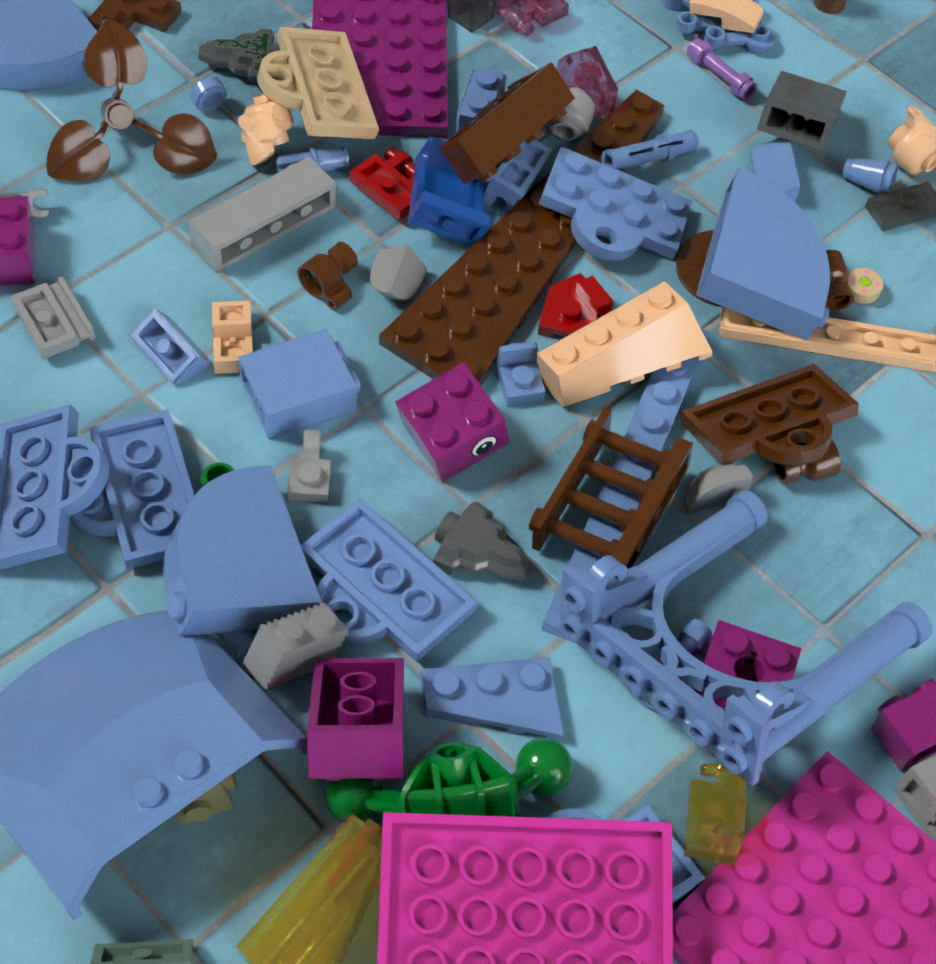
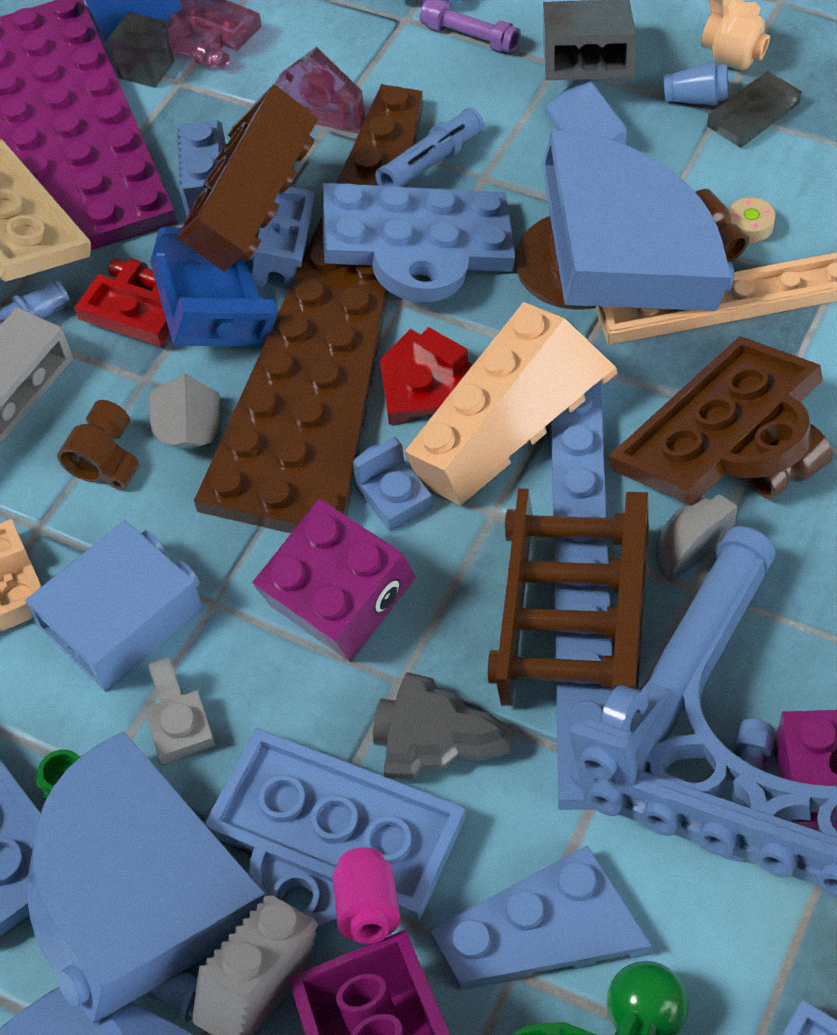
camera: 10 degrees left, 0 degrees up
(386, 627) = (365, 896): none -> dark pink brick
(578, 117) = (328, 146): light grey head -> none

